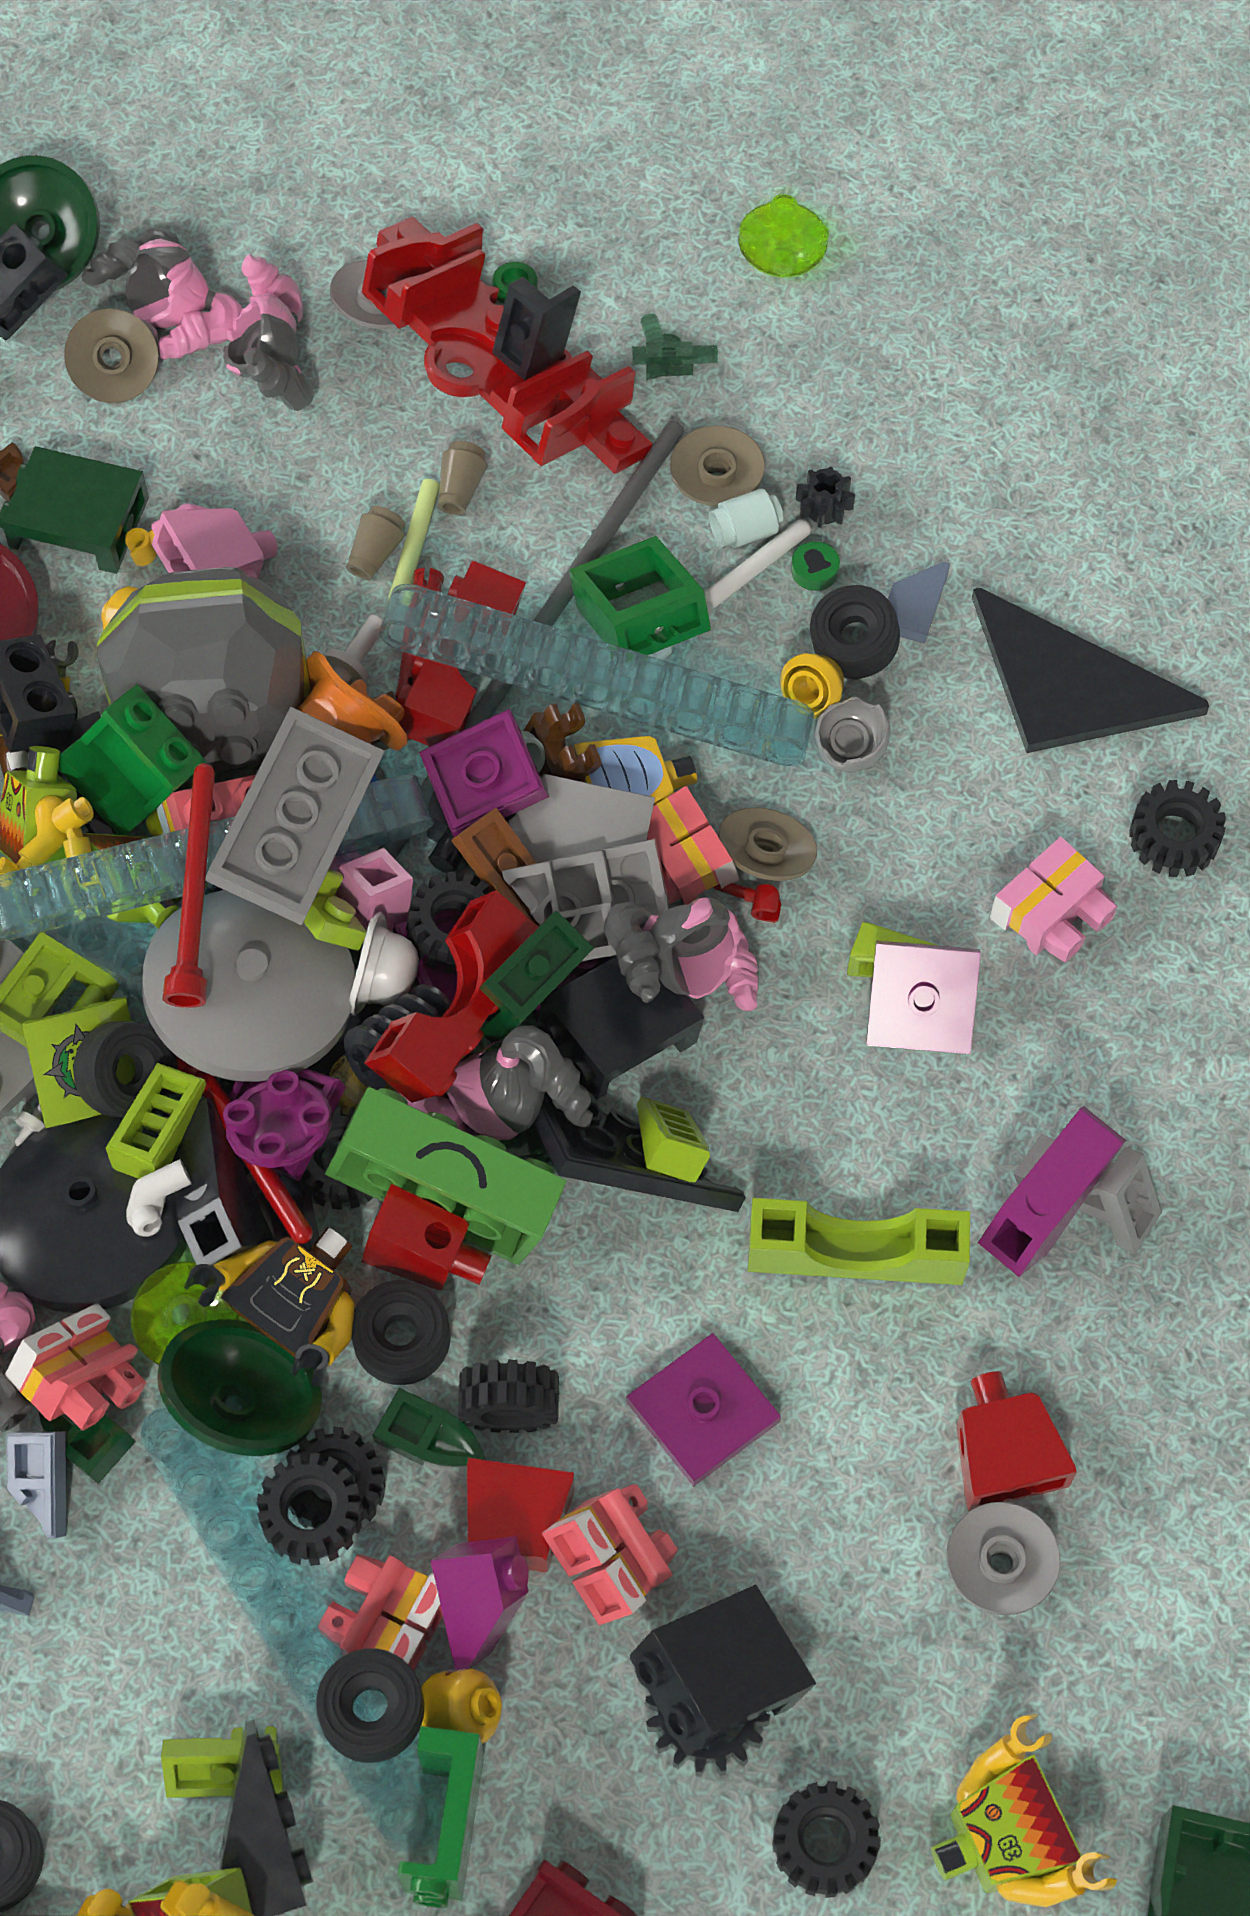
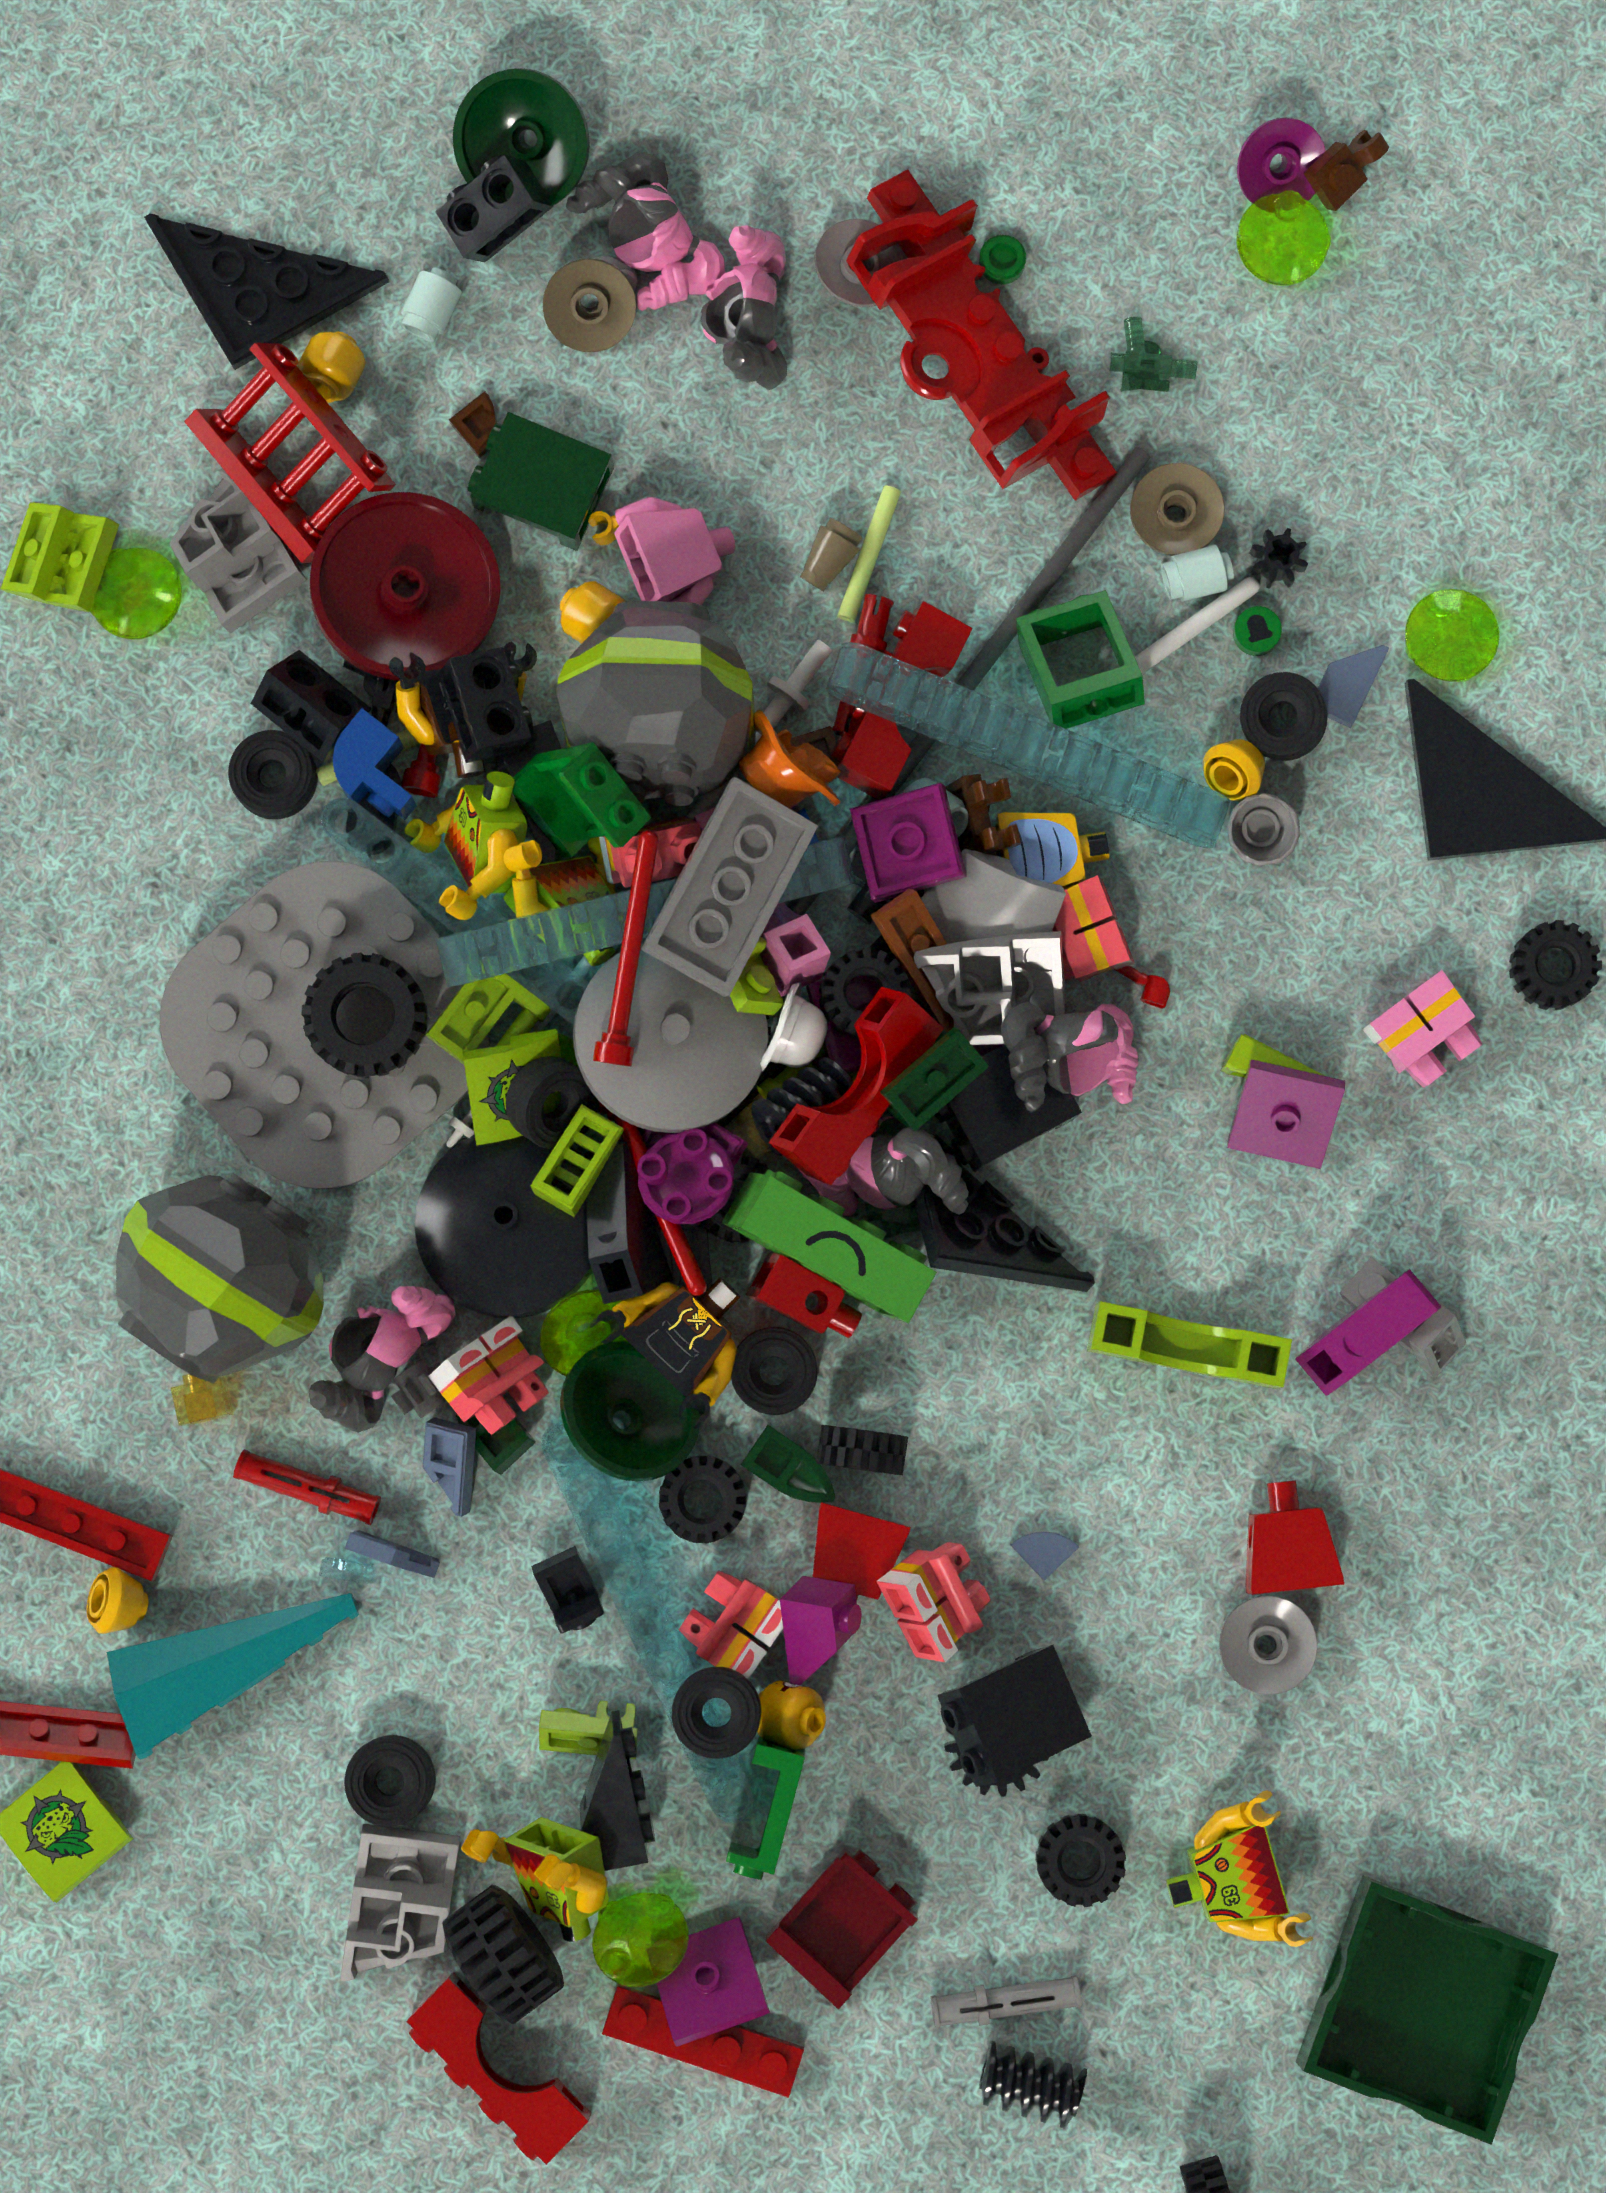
camera: 10 degrees right, 20 degrees up
(149, 1196) = (565, 1234): white arm -> none
(185, 1601) = (568, 1590): none -> black bracket
(302, 1476) = (652, 1543): black tyre -> none
(460, 475) = (921, 488): dark tan cone -> none
(534, 327) = (1011, 346): black panel -> none
(671, 1140) = (1024, 1246): lime slope -> none
(703, 1409) = (1030, 1473): magenta plate -> none
(731, 1491) = (1044, 1551): none -> sand blue tile
(768, 843) = (1176, 924): dark tan dish -> none
(780, 158) = (1299, 149): none -> magenta dish
(827, 177) = (1339, 169): none -> reddish brown plate
(1010, 548) = (1451, 635): none -> clear neon green dish

